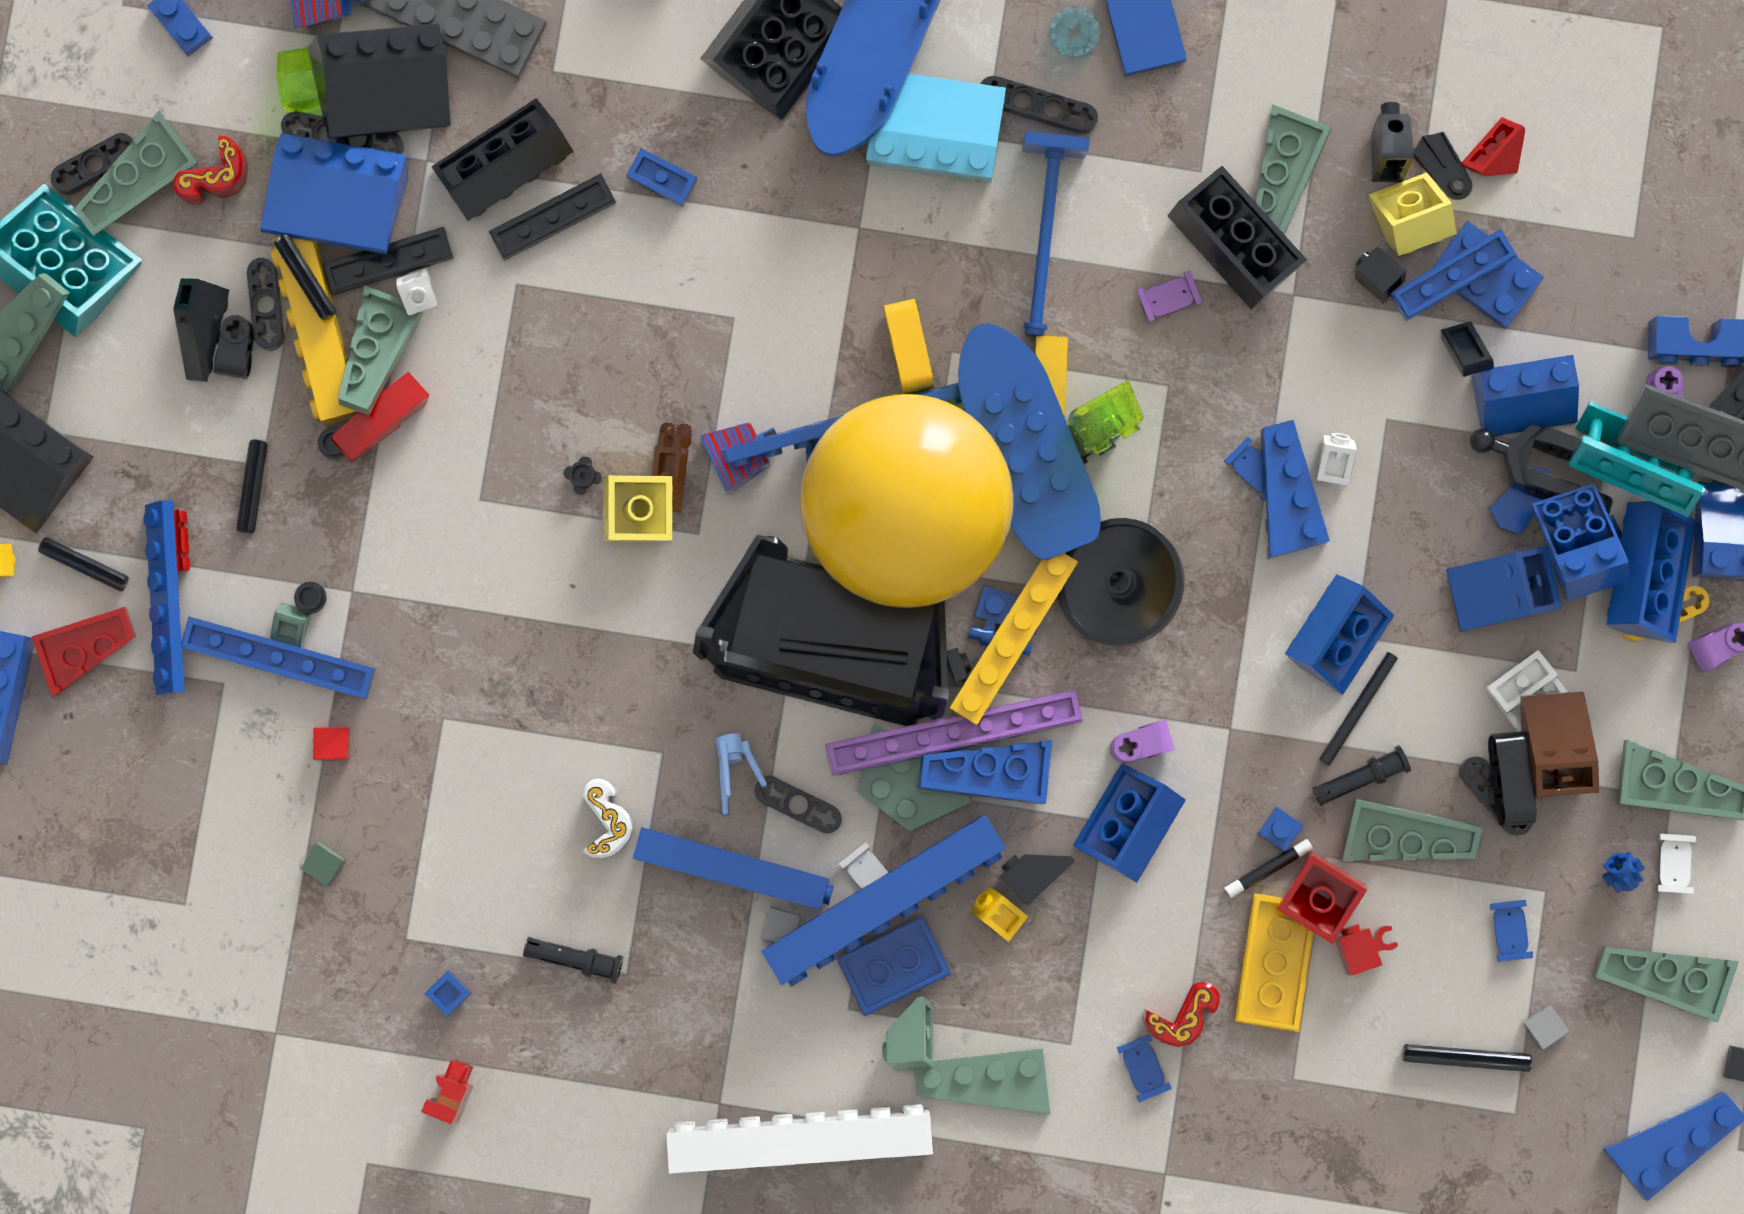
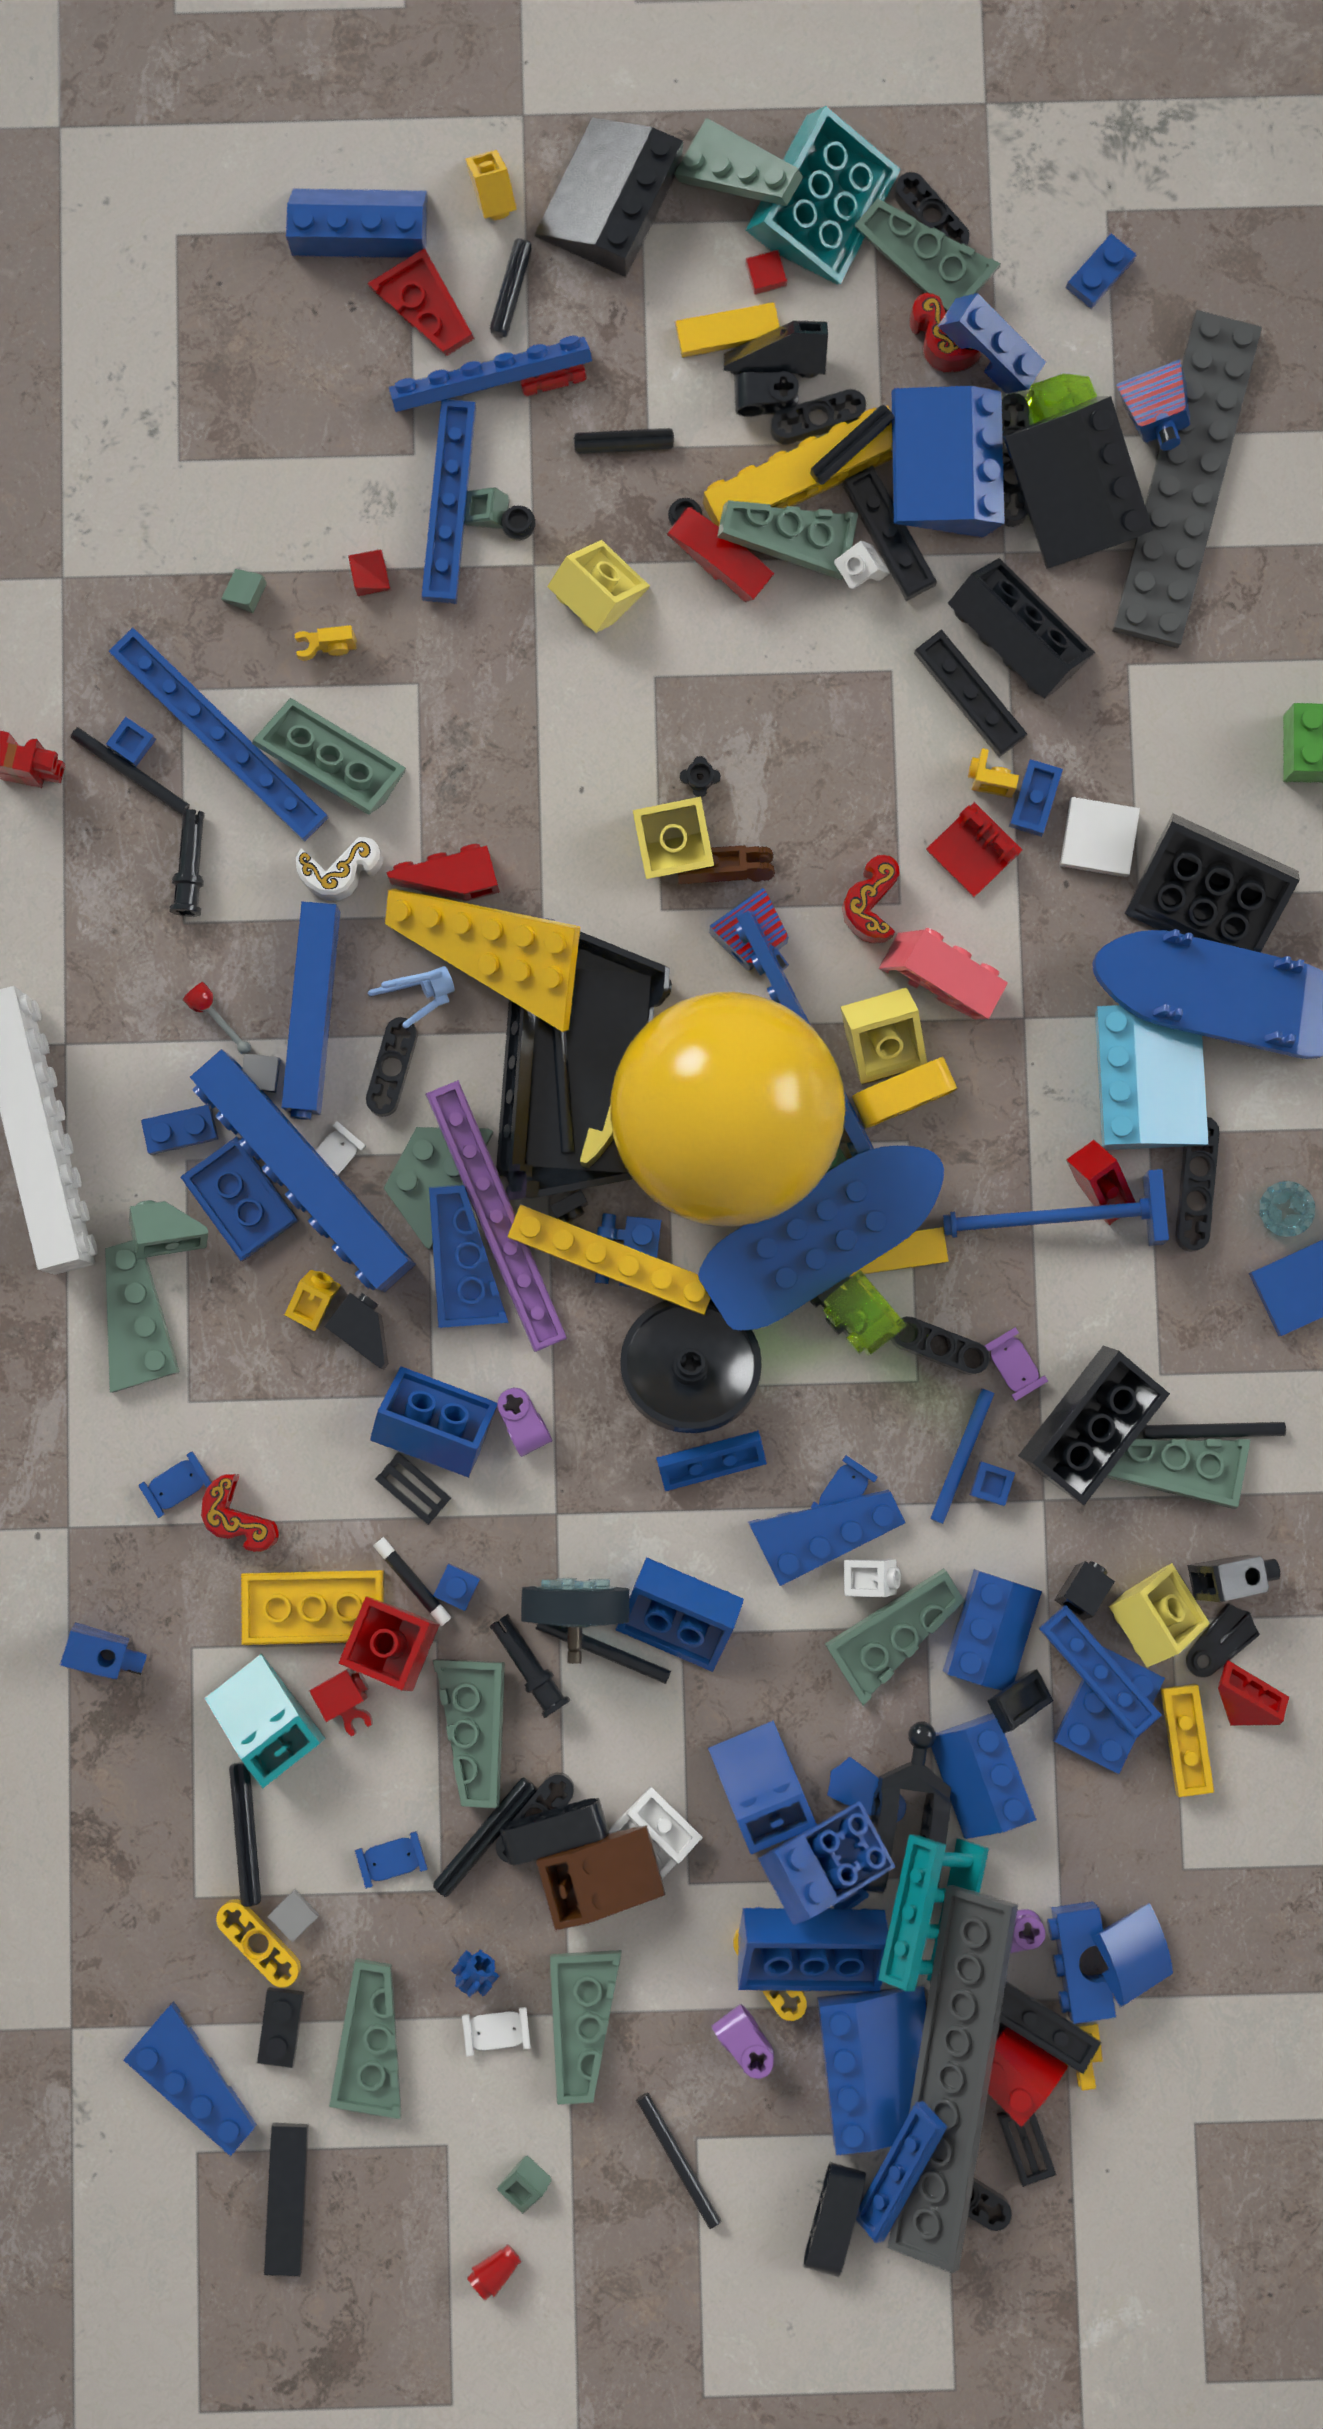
camera: 80 degrees right, 0 degrees up
(117, 326) = (766, 272): none -> red tile
(164, 372) = (725, 329): none -> yellow tile
(220, 140) = (978, 326): none -> blue arch
(386, 535) = (597, 585): none -> light yellow slope
(390, 786) = (334, 640): none -> yellow plate
(456, 910) = (218, 734): none -> blue plate
(474, 1000) = (129, 770): none -> black bar
(498, 810) = (330, 756): none -> sand green slope
(634, 712) = (456, 876): none -> red slope
(639, 210) = (994, 780): none -> yellow bracket
(698, 241) = (974, 849): none -> red hinge
(704, 969) = (200, 1000): none -> hinge
(708, 127) = (1099, 837): none -> white tile
(718, 676) = (507, 951): none -> yellow wing
(724, 349) = (864, 895): none -> red animal
(807, 289) = (945, 972): none -> coral wedge
(819, 1010) = (179, 1129): none -> blue plate
(853, 354) = (884, 1035): none -> light yellow slope
(903, 628) = (596, 1143): none -> light yellow slope
(1017, 188) = (1100, 1176): none -> red slope
(1151, 347) = (956, 1346): none -> black beam
(1207, 835) = (390, 1469): none -> black tile
(1208, 580) = (711, 1460): none -> blue plate
(1242, 358) = (962, 1455): none -> blue bar
(1258, 133) = (1214, 1430): none -> black bar
(1272, 336) = (992, 1483): none -> blue plate
(1276, 1170) = (85, 1649): none -> blue torso
(1320, 722) = (575, 1606): none -> black wheel
(1370, 1022) = (263, 1720): none -> slope
(1388, 450) = (883, 1640): none -> sand green wing
(1401, 363) = (991, 1631): none -> blue slope
(1505, 843) = (484, 1837): none -> black axle
(1524, 212) = (1187, 1740): none -> yellow plate
(1579, 1041) = (269, 1970): none -> yellow beam
(1641, 1055) = (280, 2027): none -> black plate
(1701, 293) = (1134, 1954): none -> blue slope

